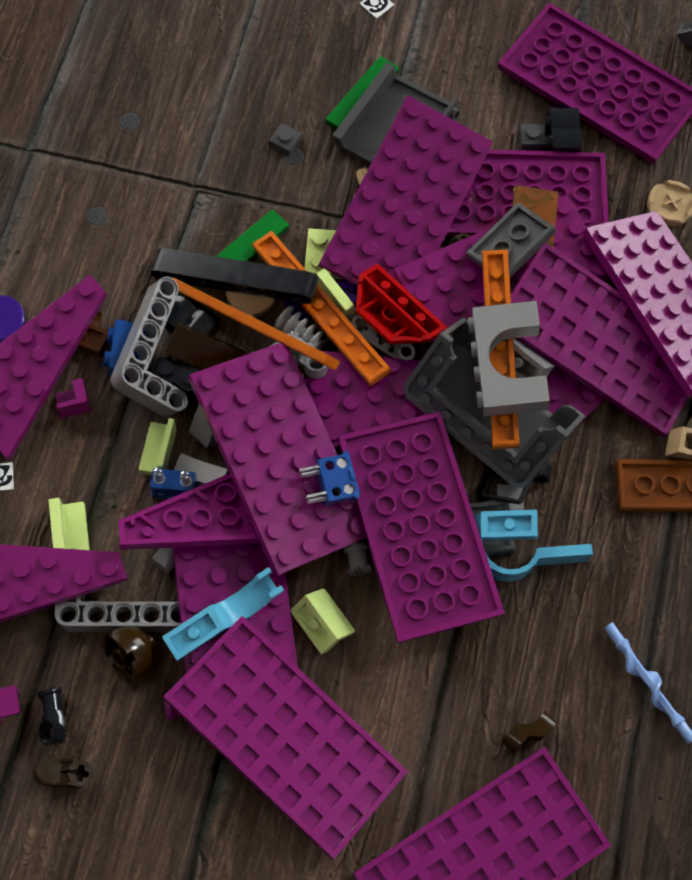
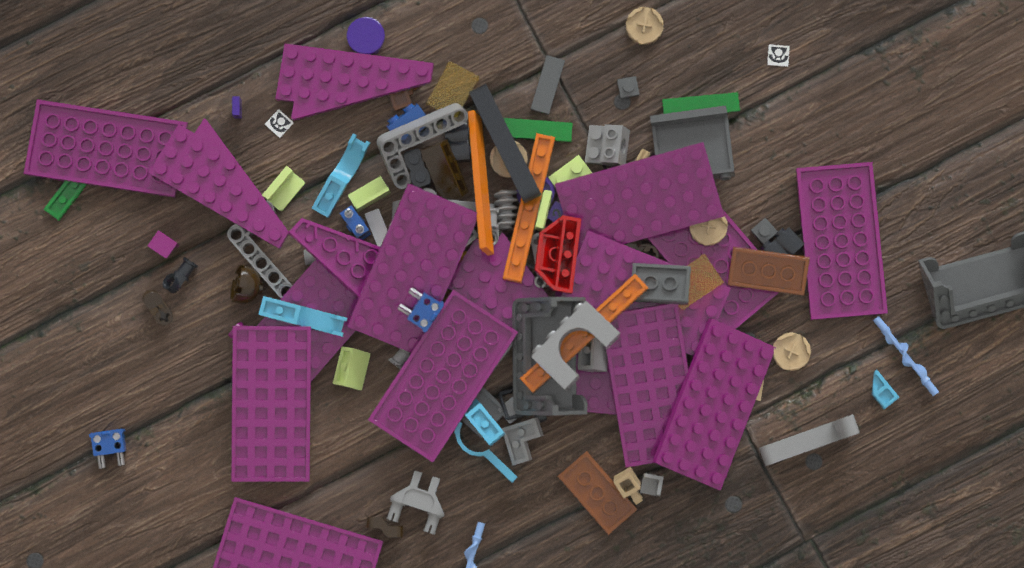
camera: 50 degrees right, 15 degrees up
(73, 401) = (355, 121): magenta panel -> none
(112, 459) = (340, 176): none -> medium azure piece
(128, 285) = (452, 87): none -> clear yellow piece
(214, 202) = (547, 85): none -> dark grey tile
(241, 82) = (644, 25): none -> tan tile
(331, 187) = (607, 145): none -> light grey brick
(492, 175) = (709, 232): none -> tan tile
(529, 667) = (418, 499): none -> light grey connector
(550, 516) = (517, 437): none -> light grey plate
(578, 153) = (768, 271): none -> dark orange tile

